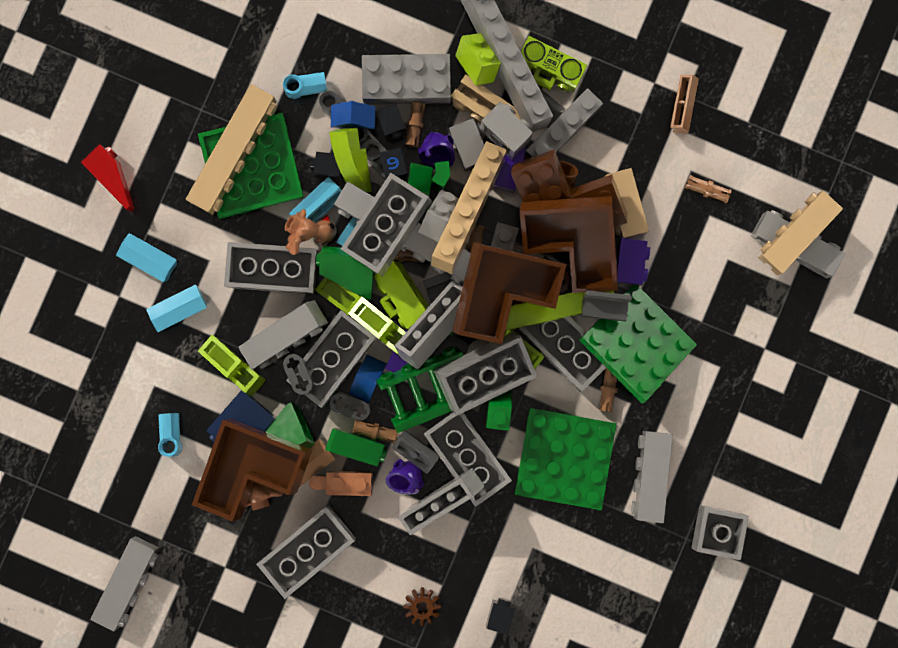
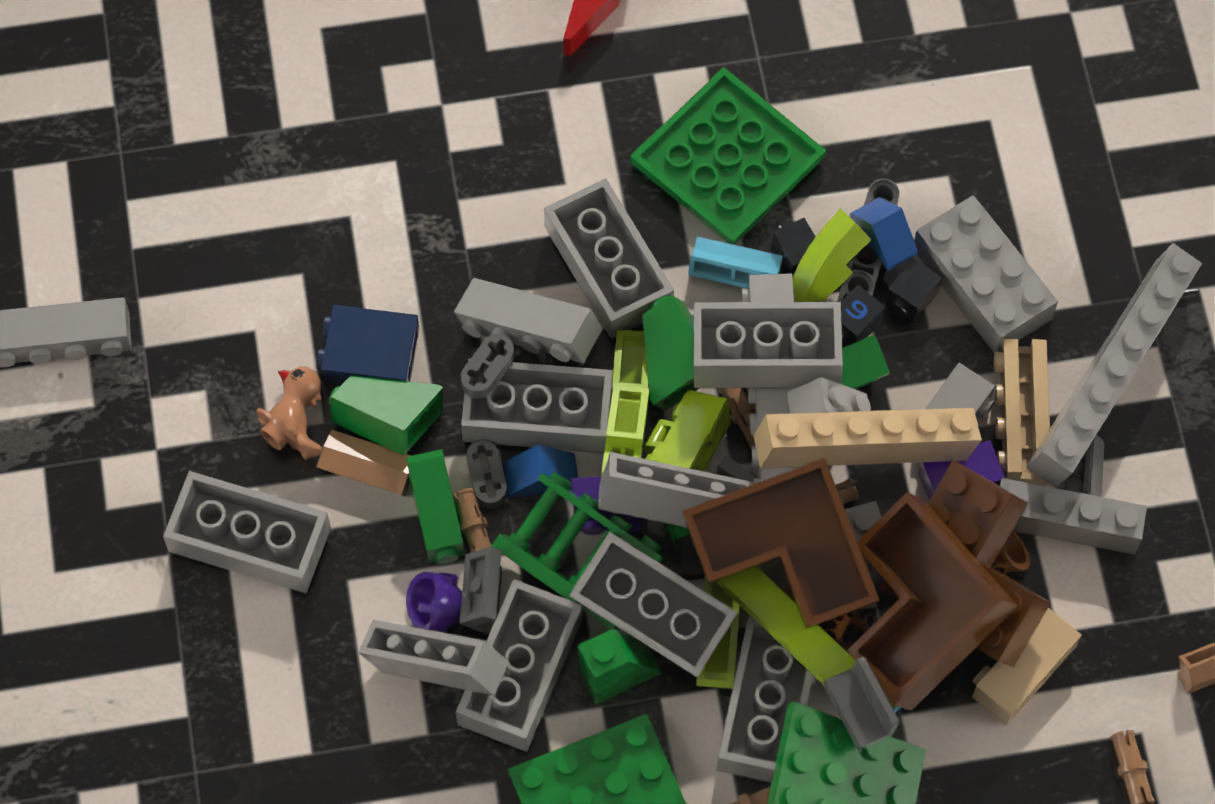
camera: 60 degrees right, 20 degrees down
(146, 257) = (516, 104): medium azure piece -> none
(169, 431) = (297, 267): medium azure piece -> none
(176, 308) = (475, 178): medium azure piece -> none
(231, 365) = (441, 291): lime slope -> none
(232, 149) = (732, 114): tan brick -> none
(245, 457) = (317, 359): reddish brown piece -> none
(303, 229) = (690, 262): nougat animal -> none
(308, 84) = (885, 157): medium azure piece -> none
(344, 483) = (375, 527): nougat brick -> none
(415, 124) = (932, 324): medium nougat pin -> none
(430, 605) = (253, 731): reddish brown gear -> none
(437, 149) = (919, 371): dark purple helmet -> none
(442, 176) = (887, 385): green piece -> none
(478, 59) = (1078, 342): lime brick -> none
(506, 129) = (1008, 426): light grey brick -> none
(550, 62) = (1147, 445): lime piece -> none
(631, 261) = (950, 724): dark purple brick -> none

